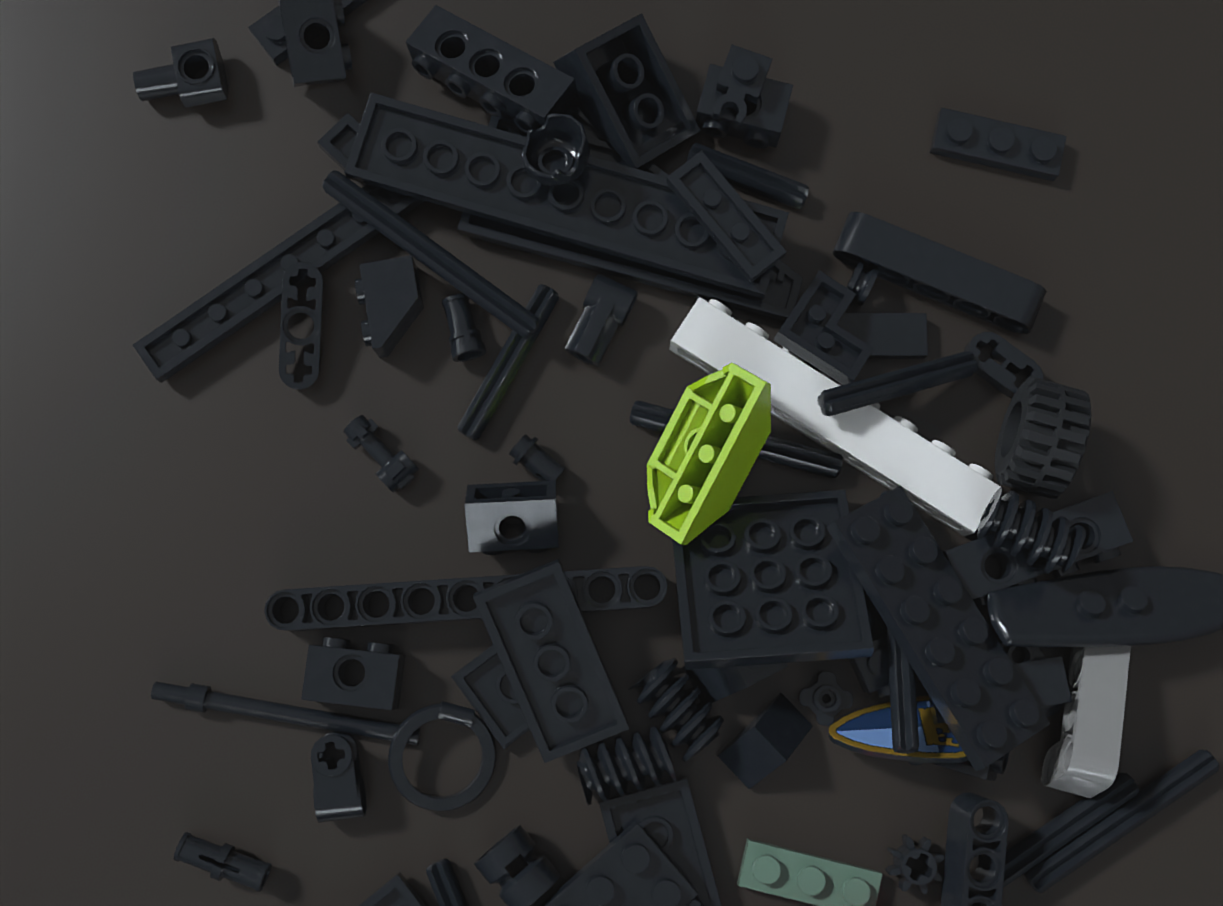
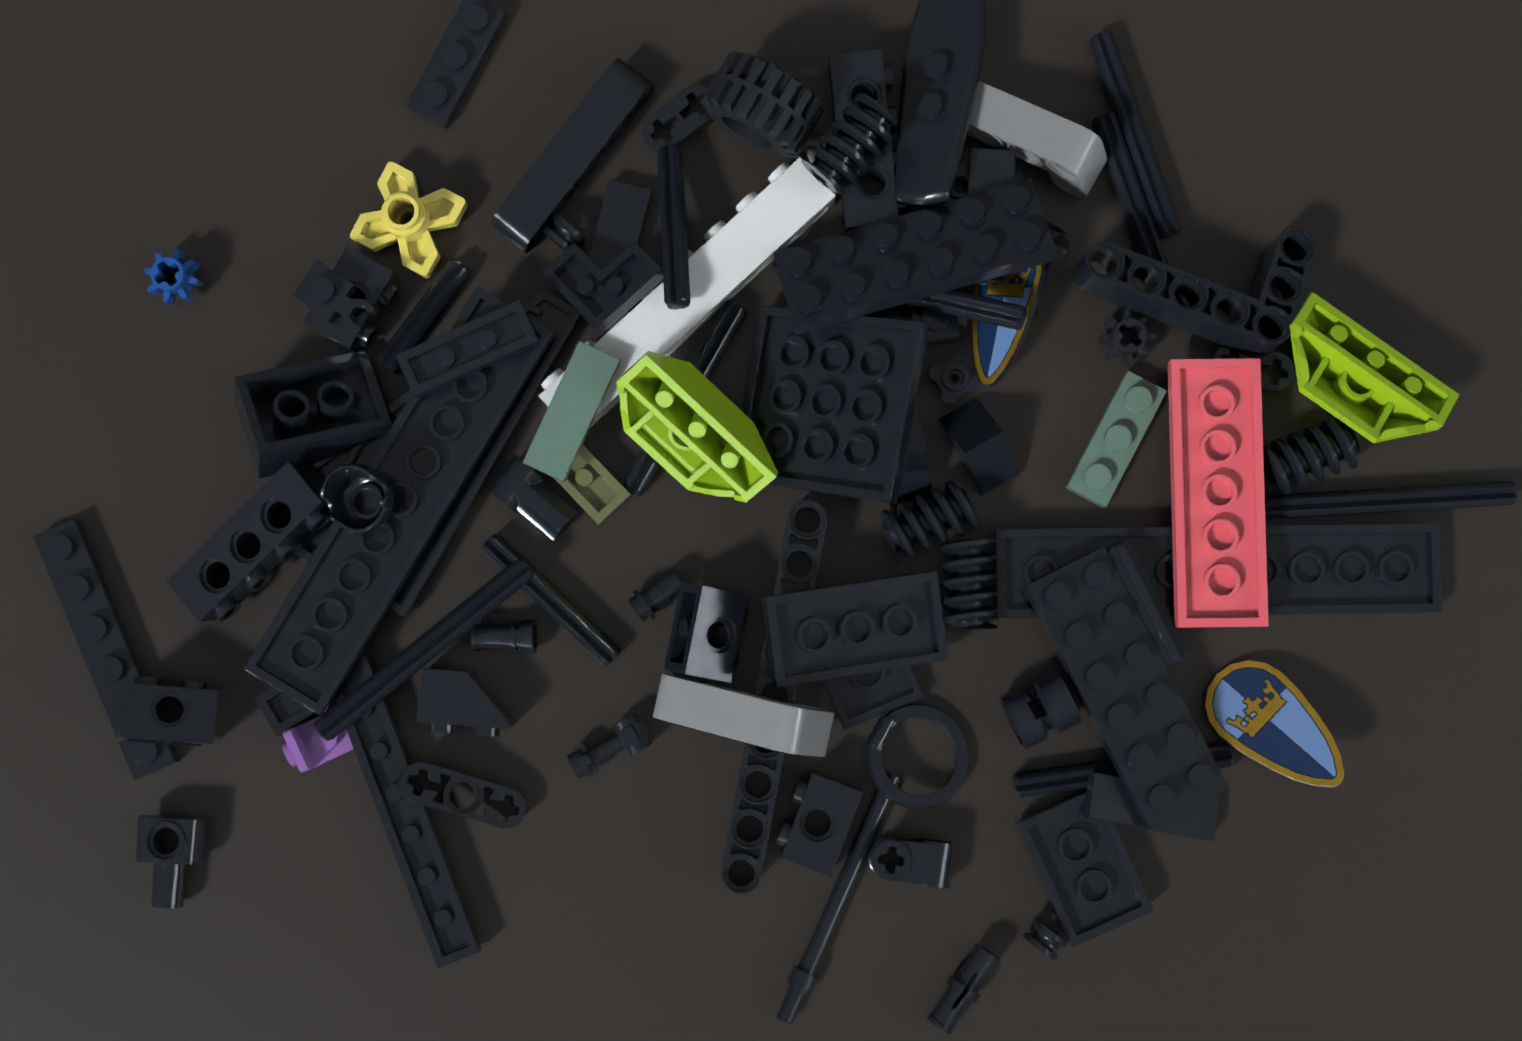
camera: 70 degrees left, 5 degrees up
(309, 172) = (309, 750): none -> medium lavender bracket
(437, 575) = (743, 716): none -> light grey beam
(632, 363) = (594, 487): none -> olive plate
(692, 331) = (571, 411): none -> sand green tile
(834, 137) = (430, 213): none -> light yellow plant

